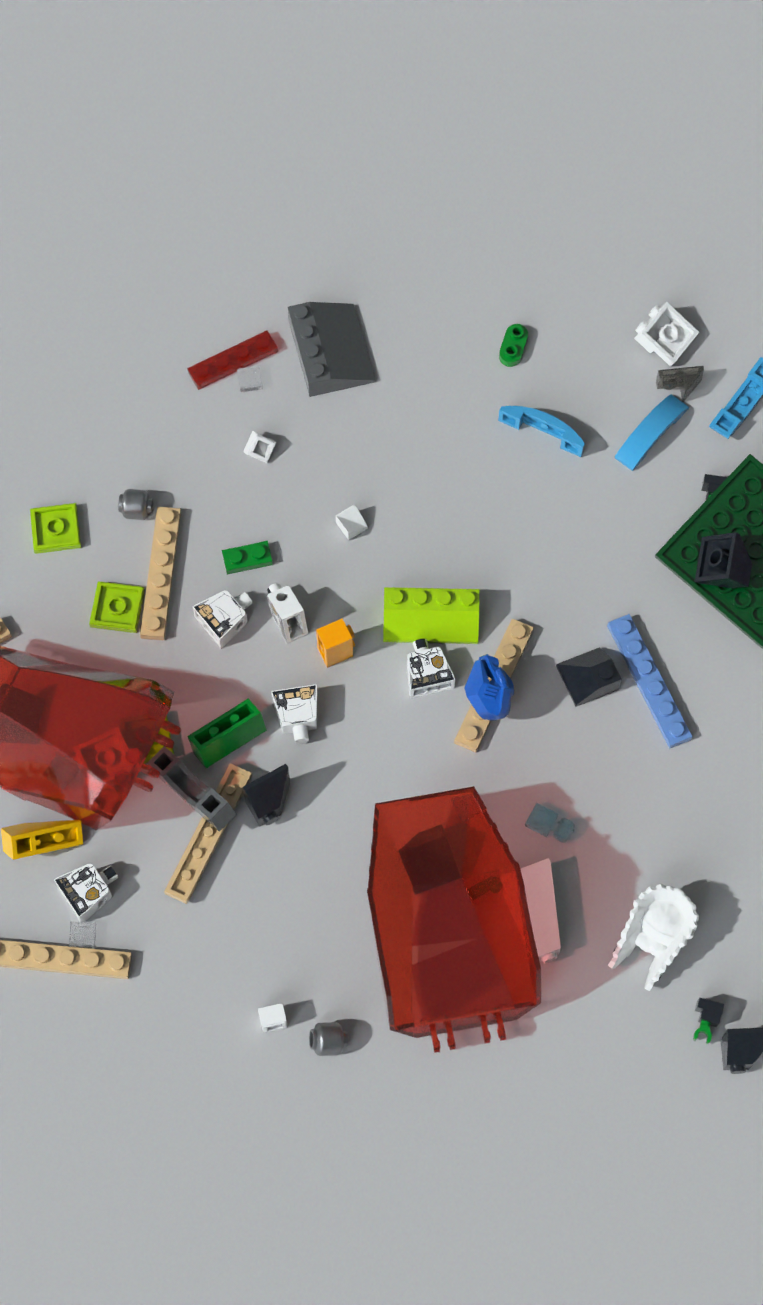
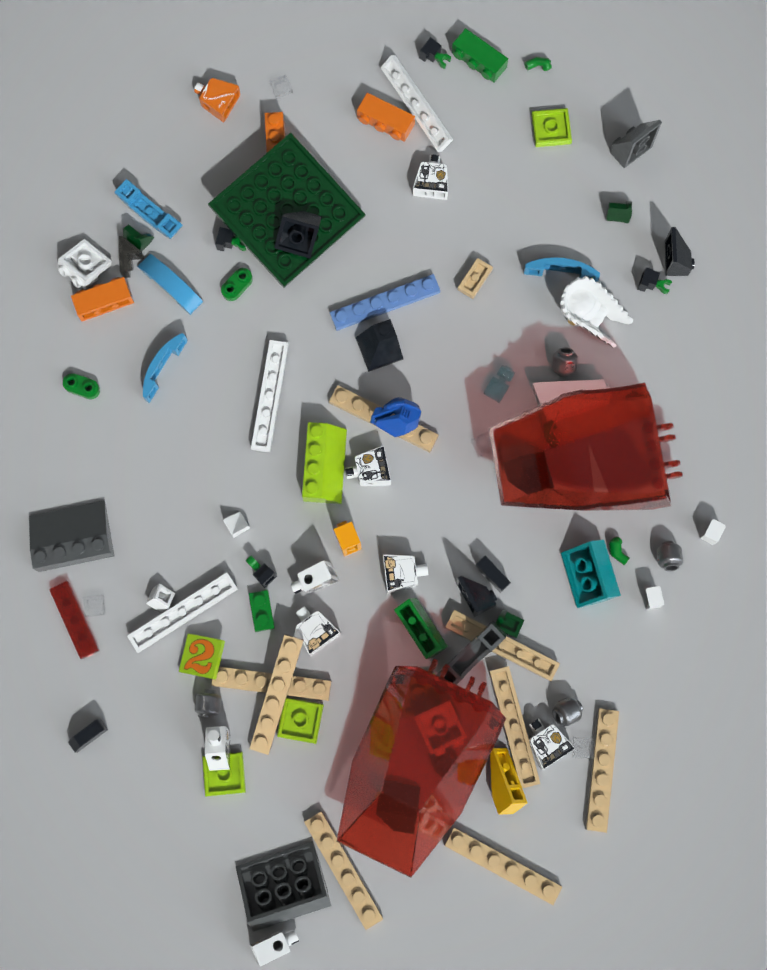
camera: 85 degrees left, 10 degrees up
(83, 513) = (217, 744): none -> white torso
(100, 383) = (87, 735): none -> black piece
(108, 849) = (514, 727): none -> tan plate
(126, 912) = (567, 711): none -> flat silver head
(146, 575) = (276, 694): none -> tan plate
(190, 493) = (201, 656): none -> lime tile
(237, 840) = (509, 623): none -> dark green tile
(243, 471) = (182, 612): none -> white plate
(291, 555) = (263, 573): none -> black piece
(297, 819) = (493, 574): none -> black piece
(302, 939) = (590, 573): none -> teal slope
(332, 972) = (616, 550): none -> green arm
(362, 1096) = (713, 532): none -> white slope
(514, 550) = (269, 396): none -> white plate
(582, 900) = (564, 362): none -> flat silver head
(624, 357) = (102, 298): none -> orange brick
(656, 506) = (239, 285): none -> green plate
(690, 788) = (475, 278): none -> tan plate
(700, 393) = (135, 238): none -> dark green tile
(714, 869) = (562, 265): none -> dark azure slope

